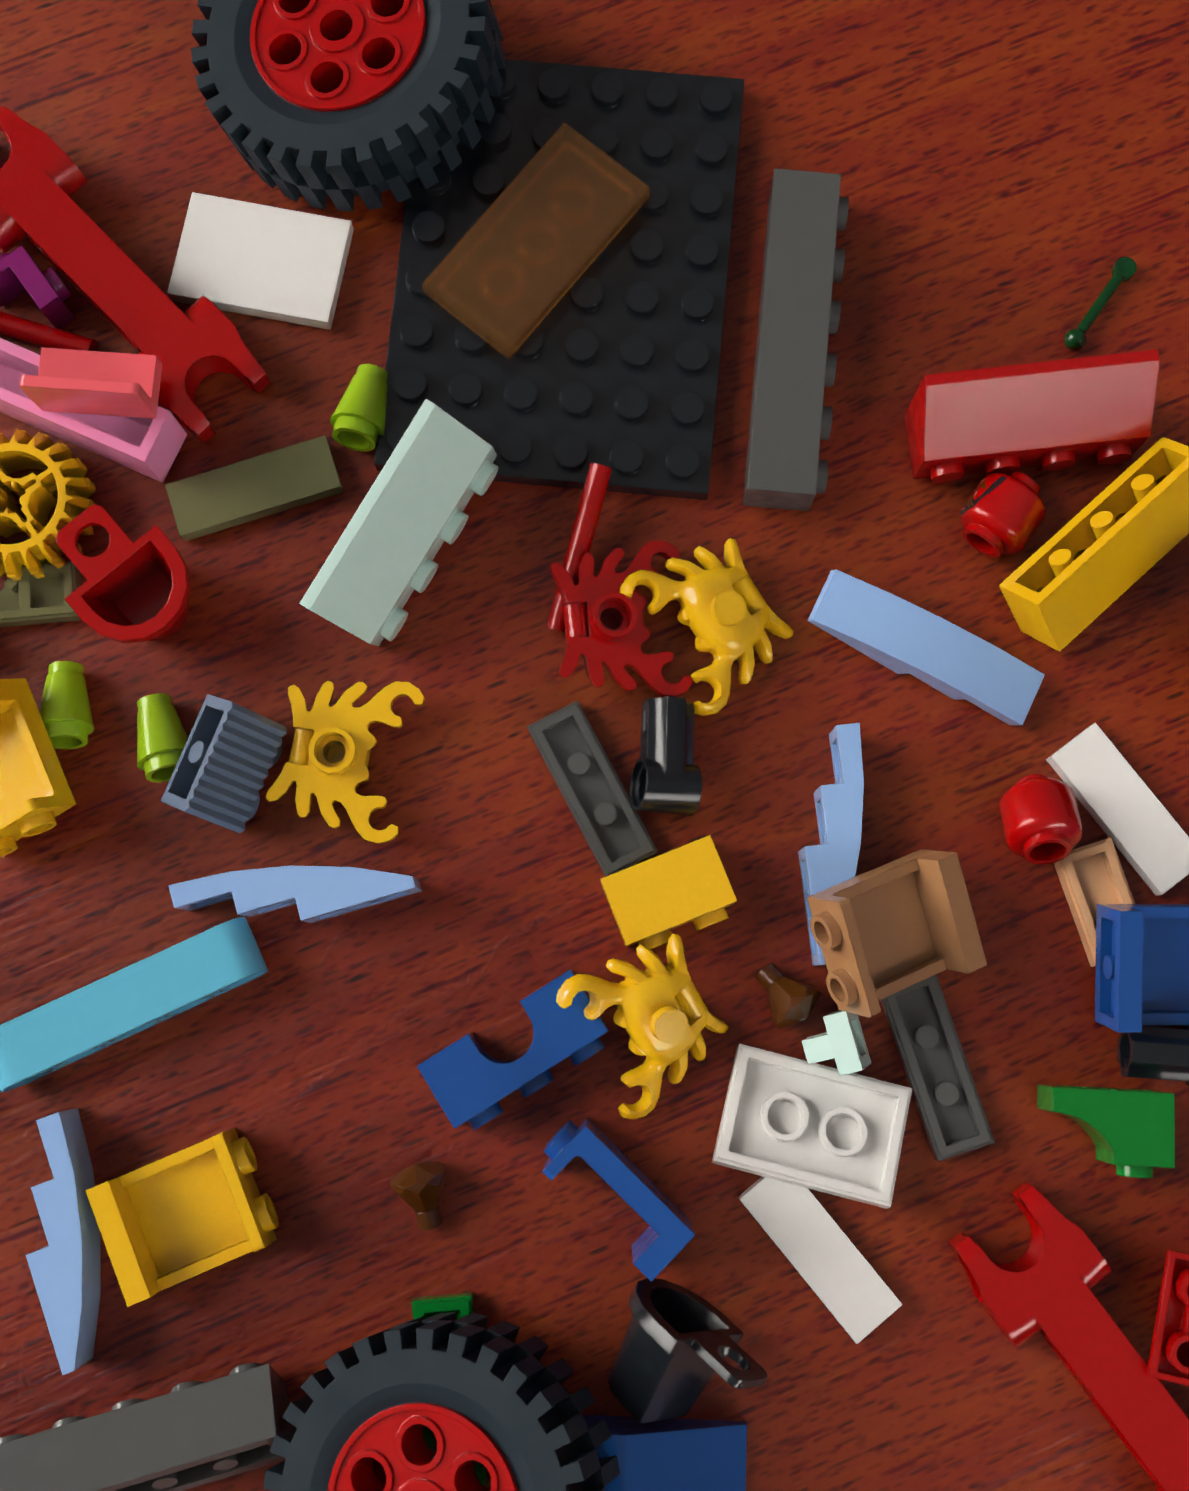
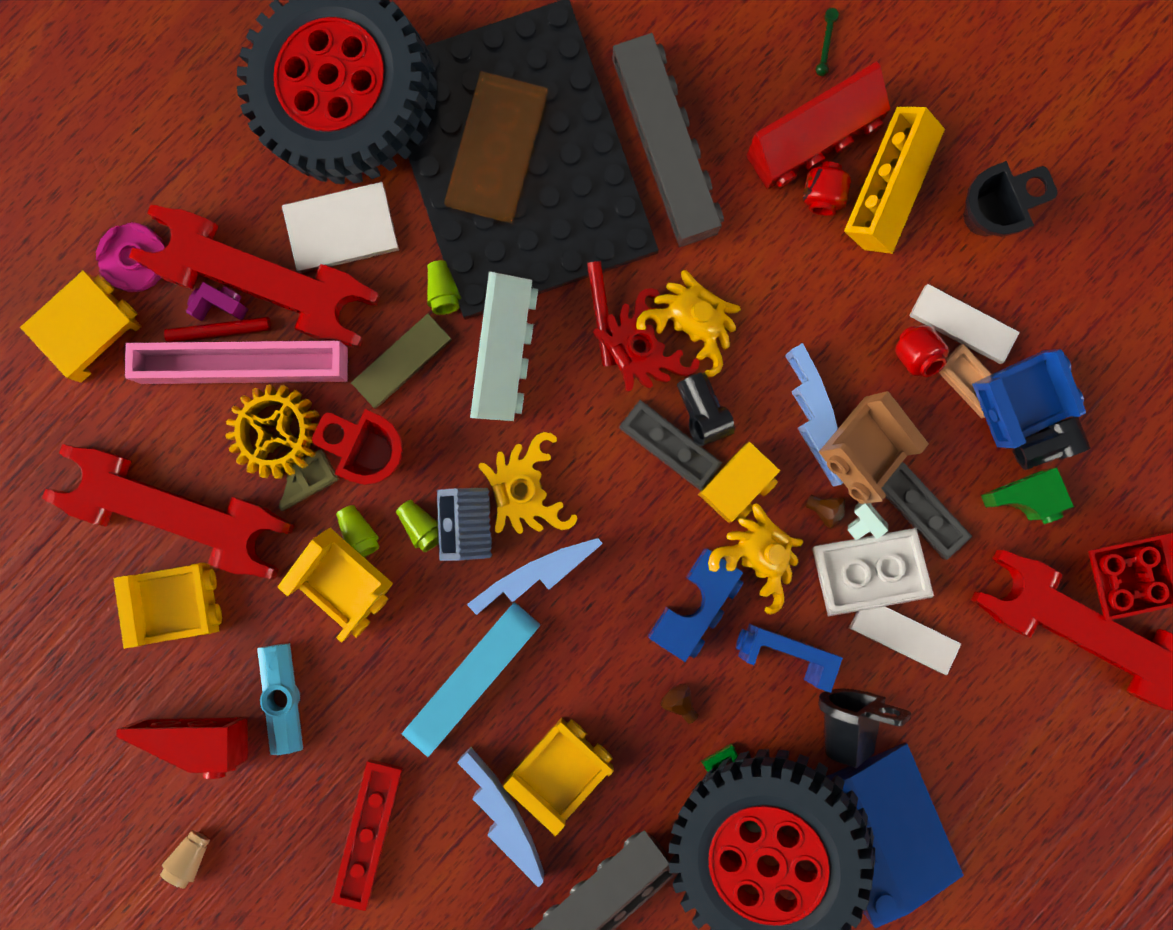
camera: 30 degrees left, 5 degrees up
(95, 383) = (291, 343): coral panel -> none
(925, 646) = (818, 283): light blue slope -> none

